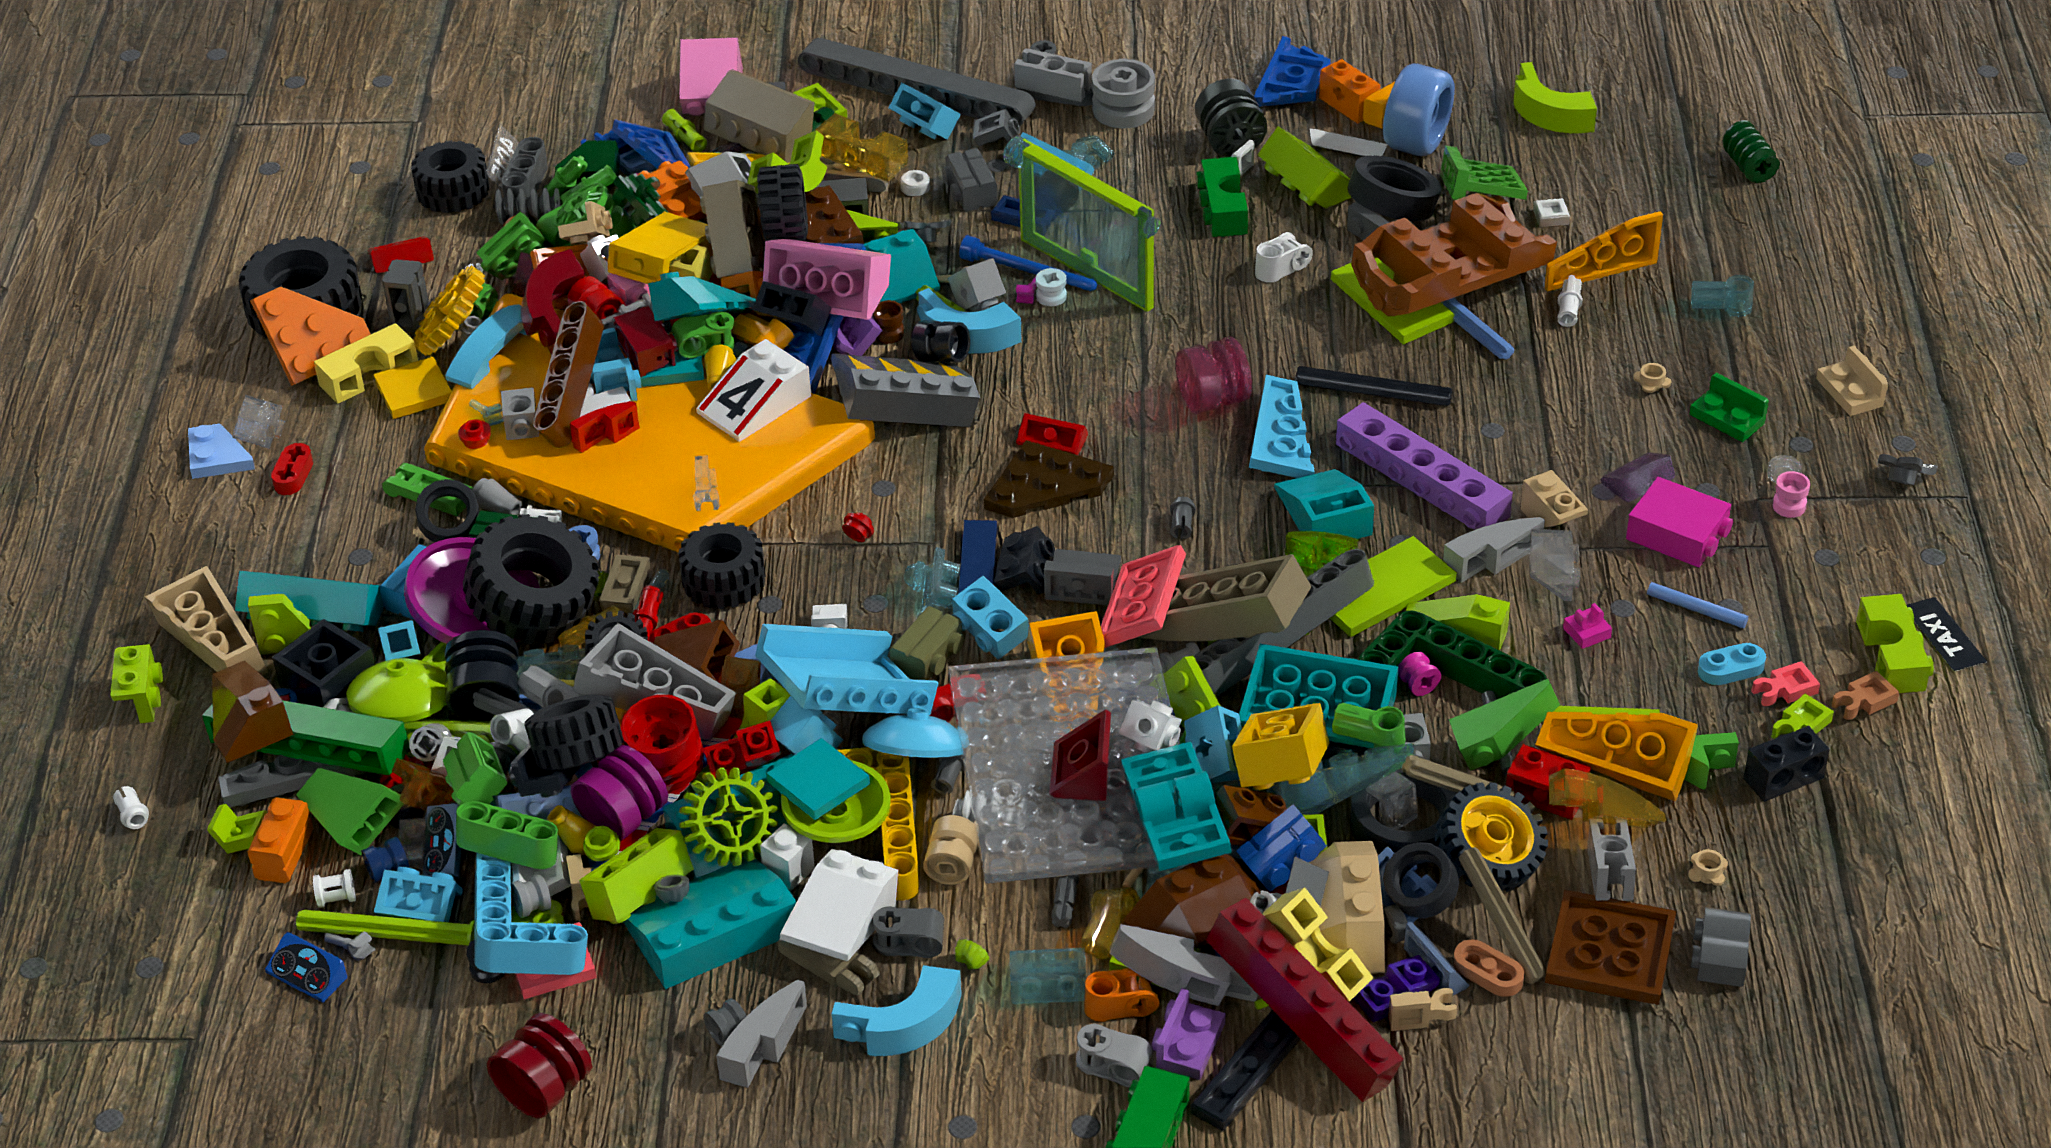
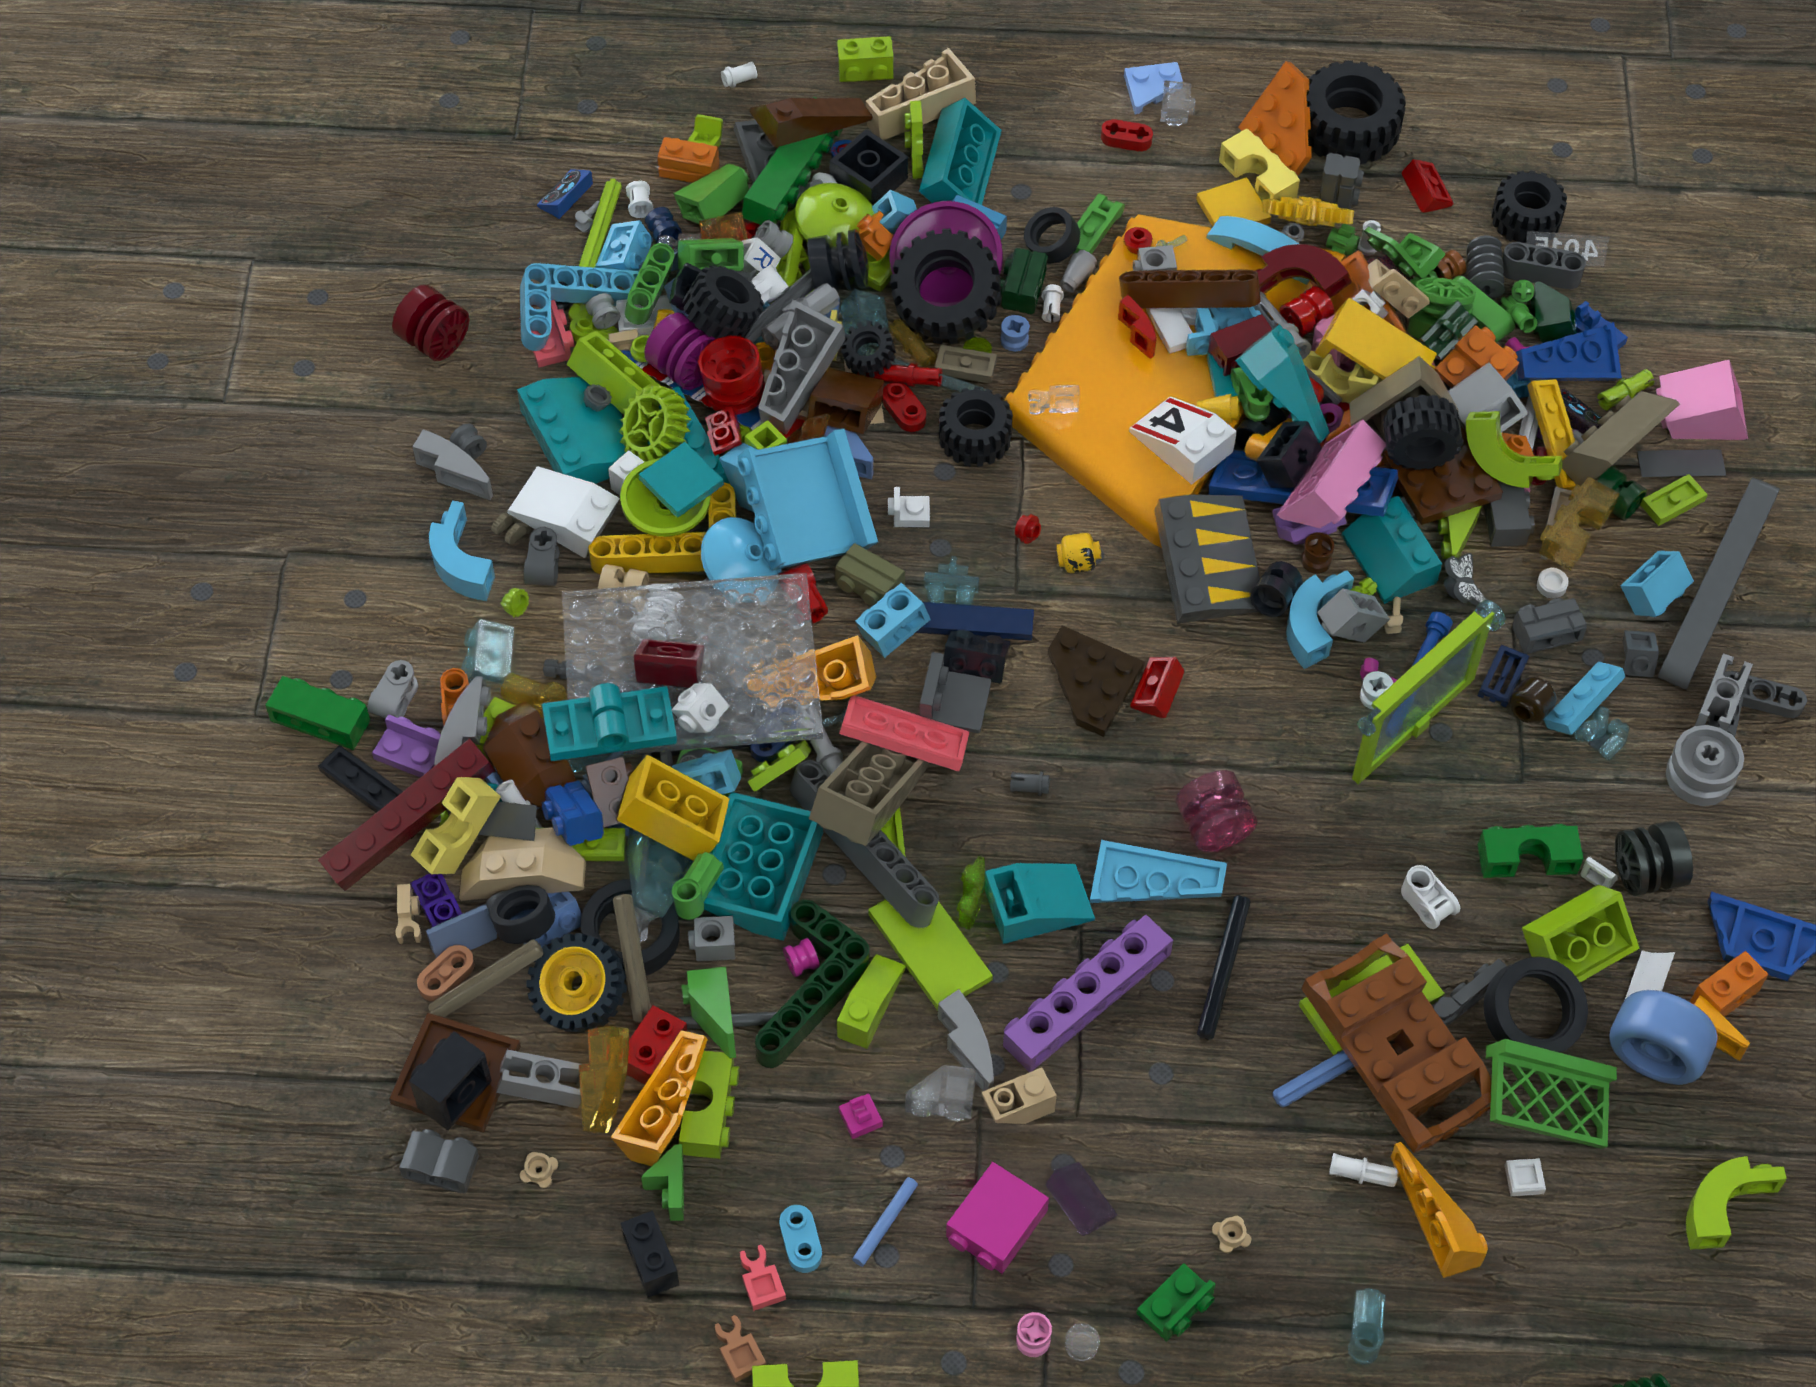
camera: 90 degrees right, 15 degrees up
(430, 646) = (874, 235): none -> orange bracket
(891, 486) = (1078, 553): none -> yellow head
(1646, 912) = (450, 1080): none -> black brick
(1803, 713) = (713, 1287): lime plate -> none

